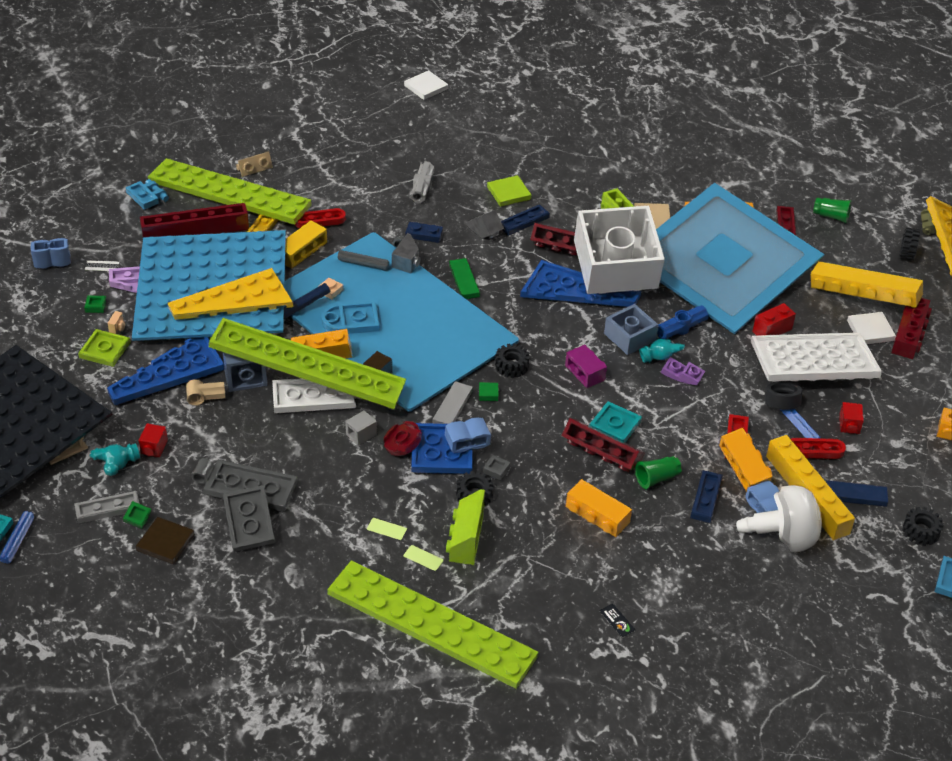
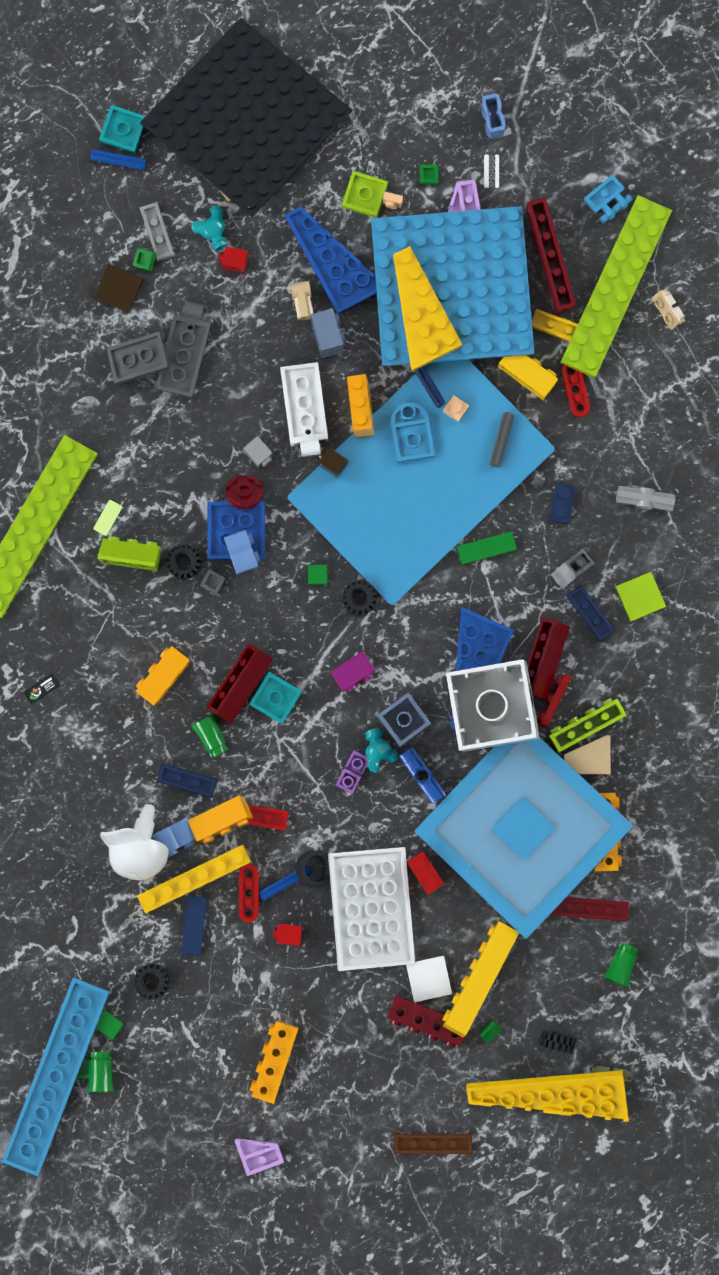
camera: 90 degrees right, 40 degrees up
(307, 363) = (315, 392): lime plate -> none
(386, 528) = (140, 483): yellowish green sticker -> none
(406, 255) = (508, 485): flat silver slope -> none
(453, 403) = (297, 539): light grey tile -> none

